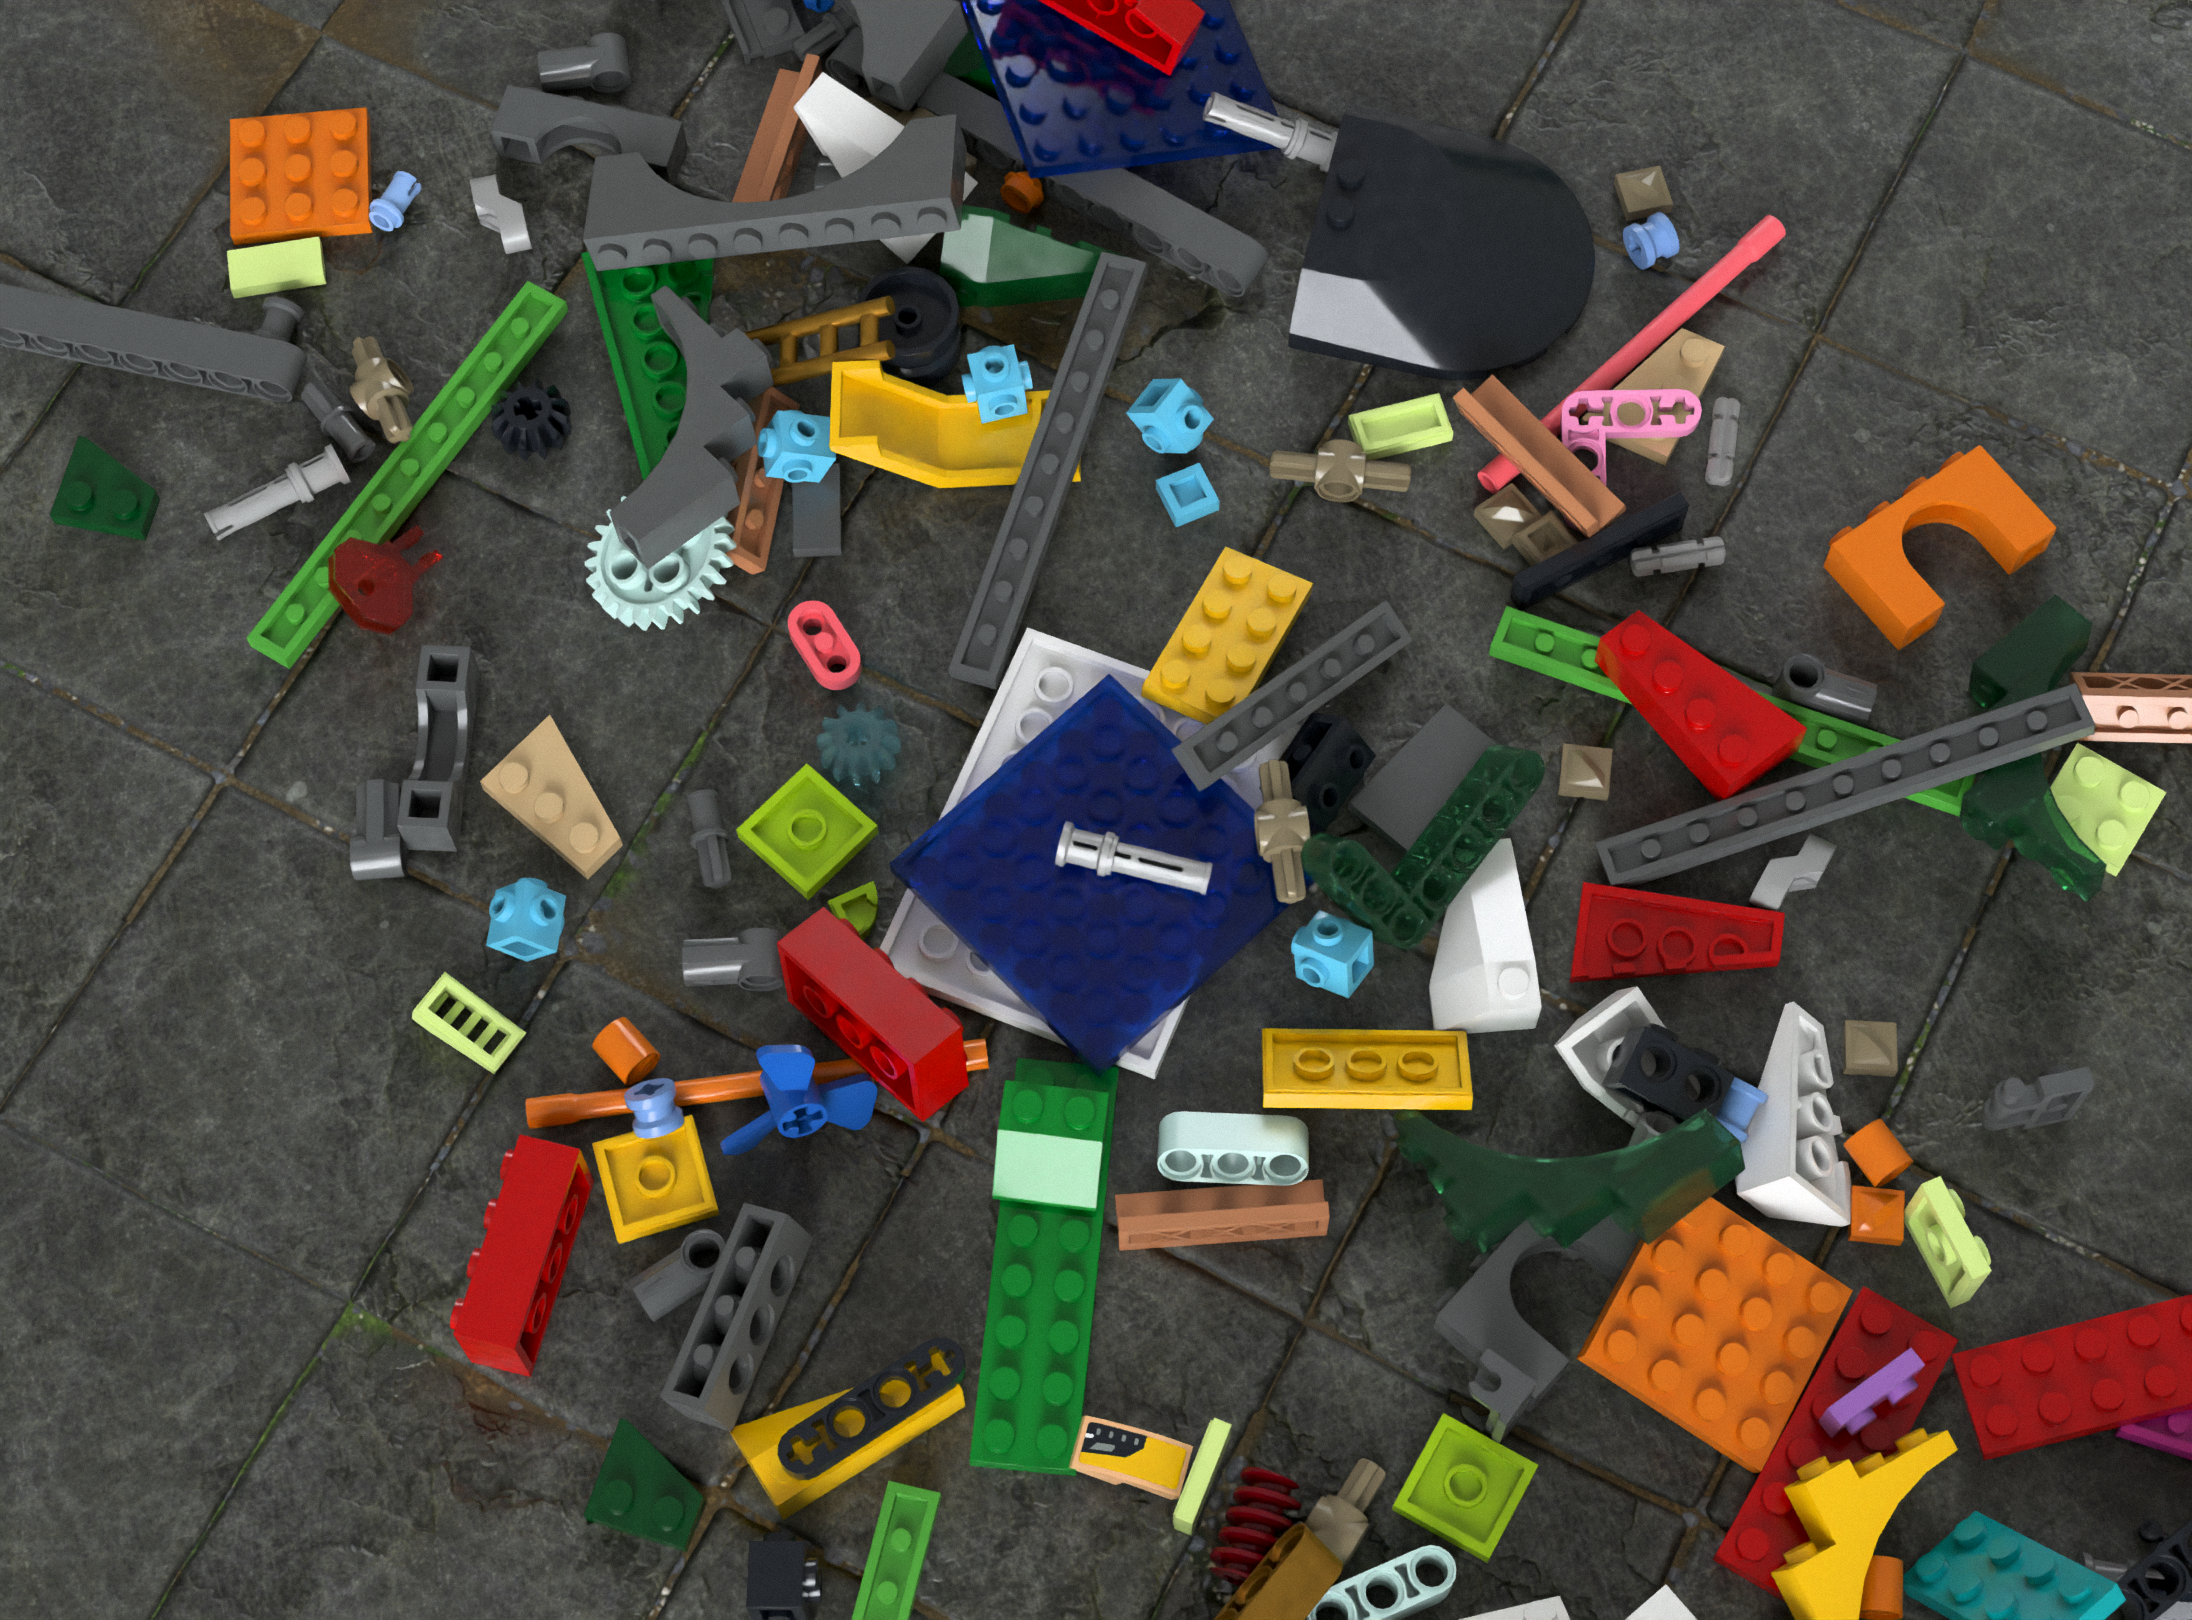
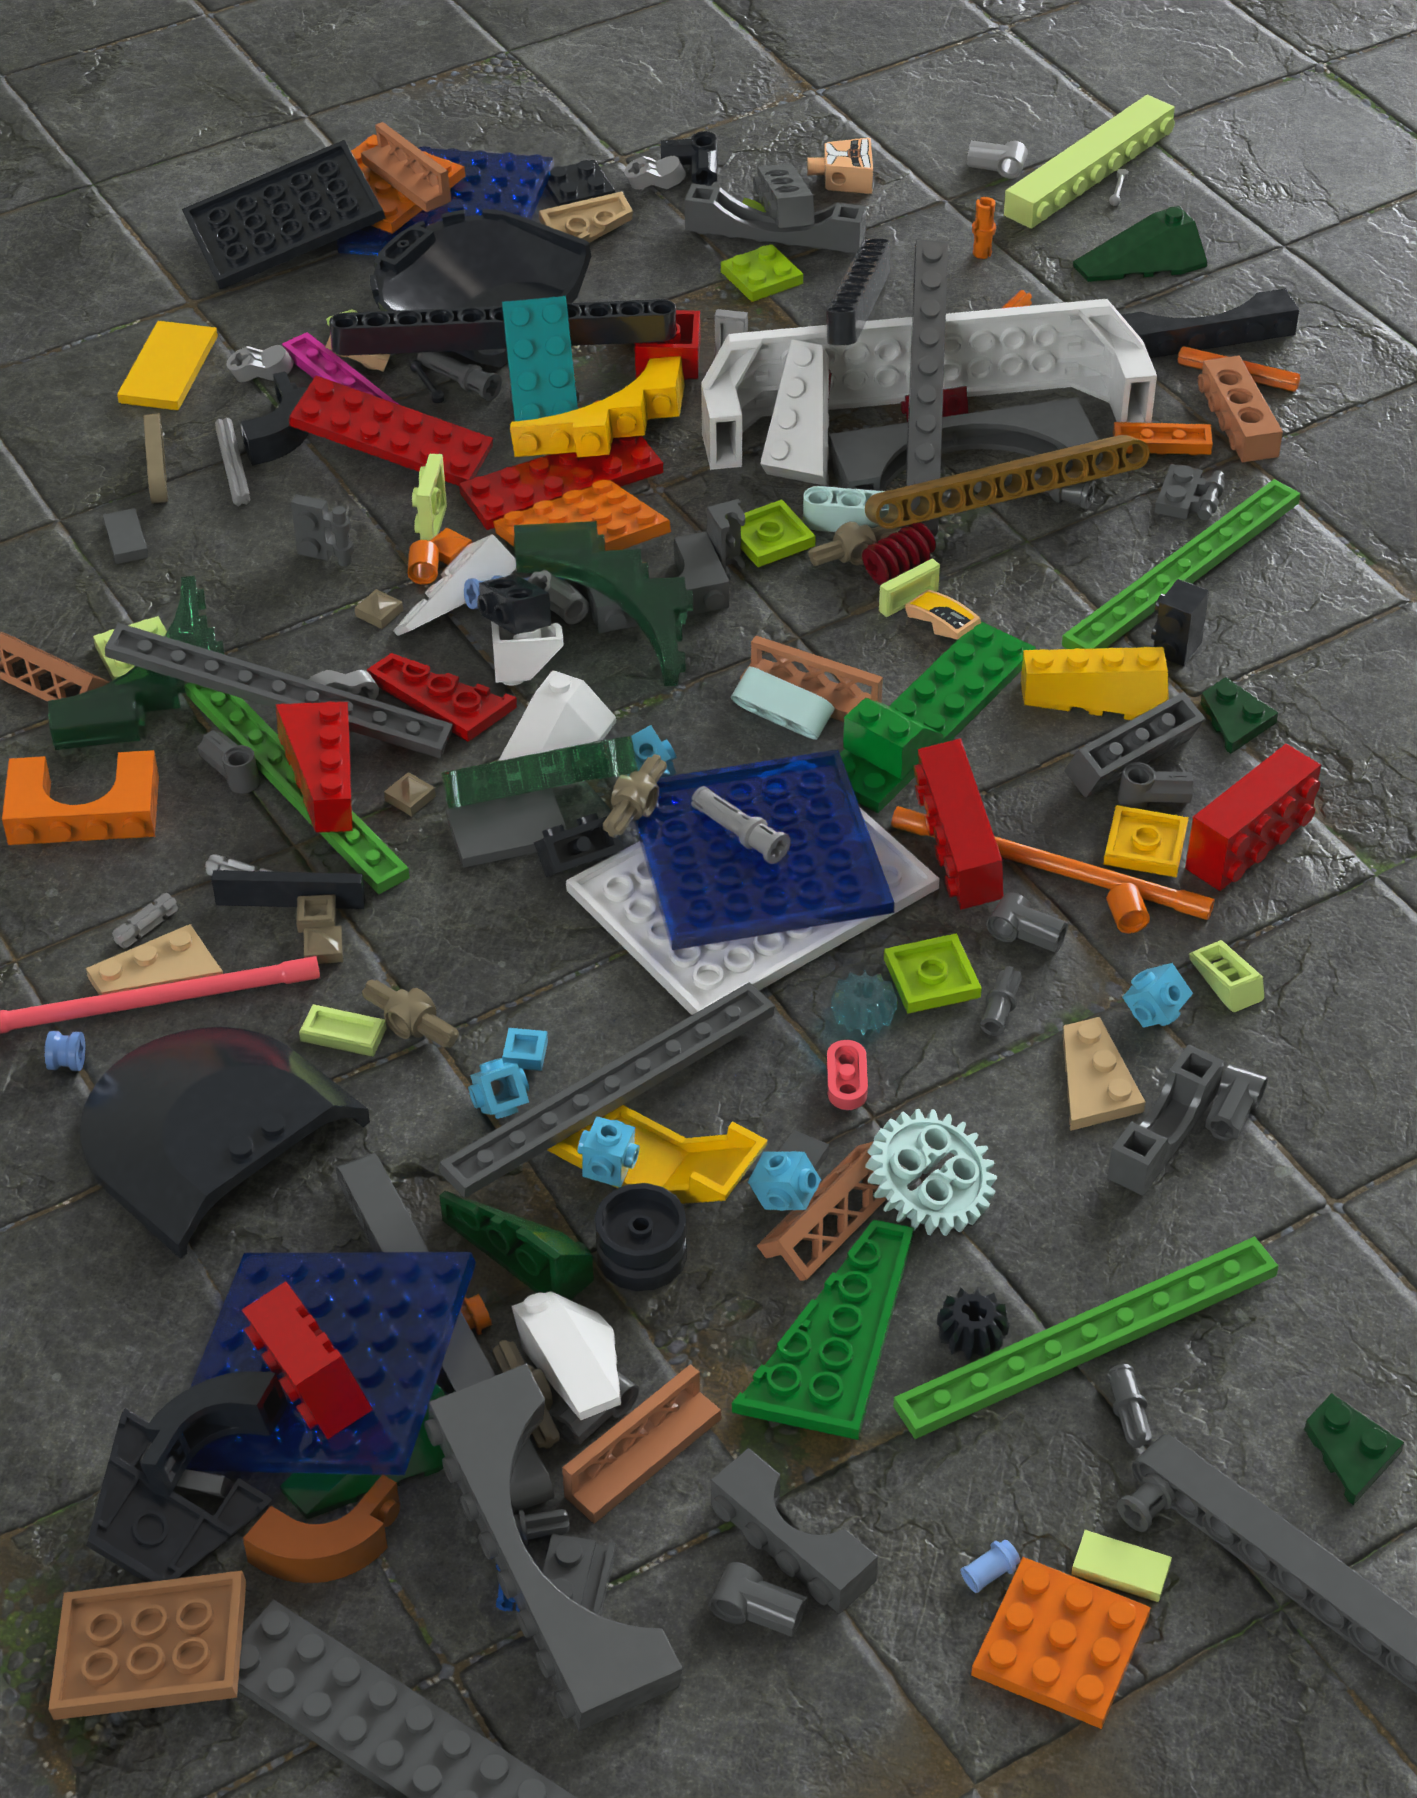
camera: 150 degrees left, 20 degrees down
(296, 484) = (1185, 1368): light grey pin -> none
(381, 389) = (1082, 1401): dark tan axle -> none
(381, 576) = (1152, 1248): clear red hinge -> none
(500, 214) = (905, 1504): light grey piece -> none
(654, 1108) = (1132, 850): medium blue wheel -> none
(695, 476) = (882, 1162): dark grey arch -> none
(800, 1104) = (1040, 819): blue piece -> none
(827, 324) = (753, 1247): pearl gold bar -> none
(858, 907) = (927, 924): lime tile -> none
(867, 1401) = (1083, 652): black beam -> none
(900, 193) = (588, 1270): dark grey arch -> none
(1227, 637) = (571, 948): yellow plate -> none
(1291, 696) = (549, 884): dark grey plate -> none
(1292, 137) = (246, 1234): light grey pin -> none
(1366, 1069) = (676, 703): yellow tile -> none
(1540, 457) = (282, 937): nougat fence -> none
(1594, 435) = (219, 951): bright pink beam -> none
(1643, 193) = (33, 1093): dark tan tile -> none
(1855, 1408) = (530, 463): medium lavender plate -> none

